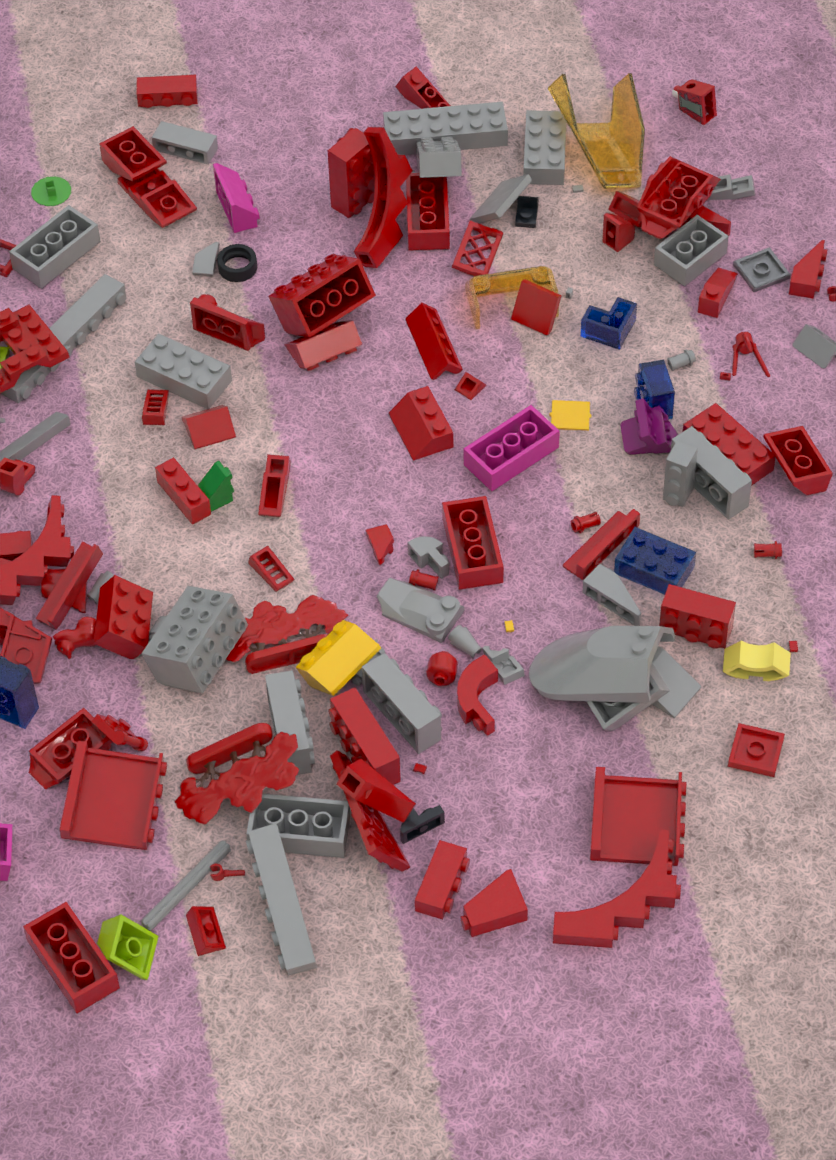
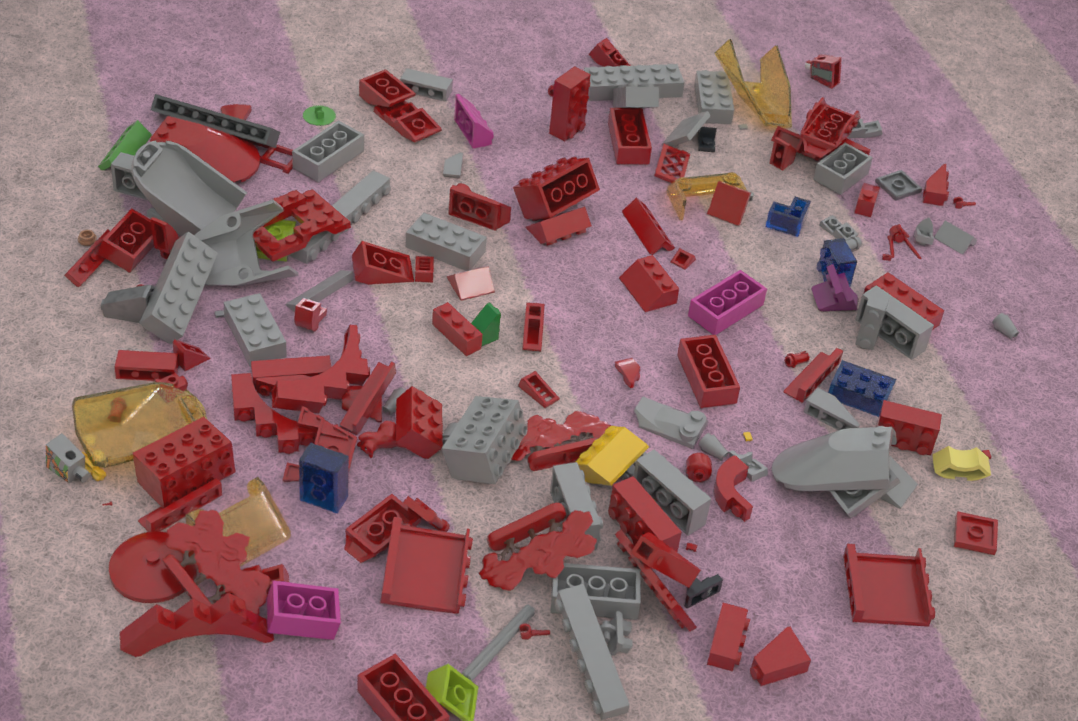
camera: 10 degrees left, 10 degrees down
(104, 405) = (380, 265): none -> red slope
(167, 90) = (407, 50): red brick -> none
(205, 930) = (520, 681): red slope -> none
(239, 274) = (476, 175): black tyre -> none
(313, 875) = (614, 634): none -> light grey hips
(389, 200) = (602, 103): red arch -> none
(423, 580) = (670, 400): red pin -> none
(429, 552) = (671, 377): light grey brick -> none
(570, 415) = (771, 280): yellow piece -> none
(601, 924) = (876, 673): red arch -> none
(670, 337) = (838, 230): none -> light grey slope
(769, 550) = (950, 381): red pin -> none
(778, 341) = (924, 232): none -> light grey plate
(800, 459) = (965, 314): red slope -> none

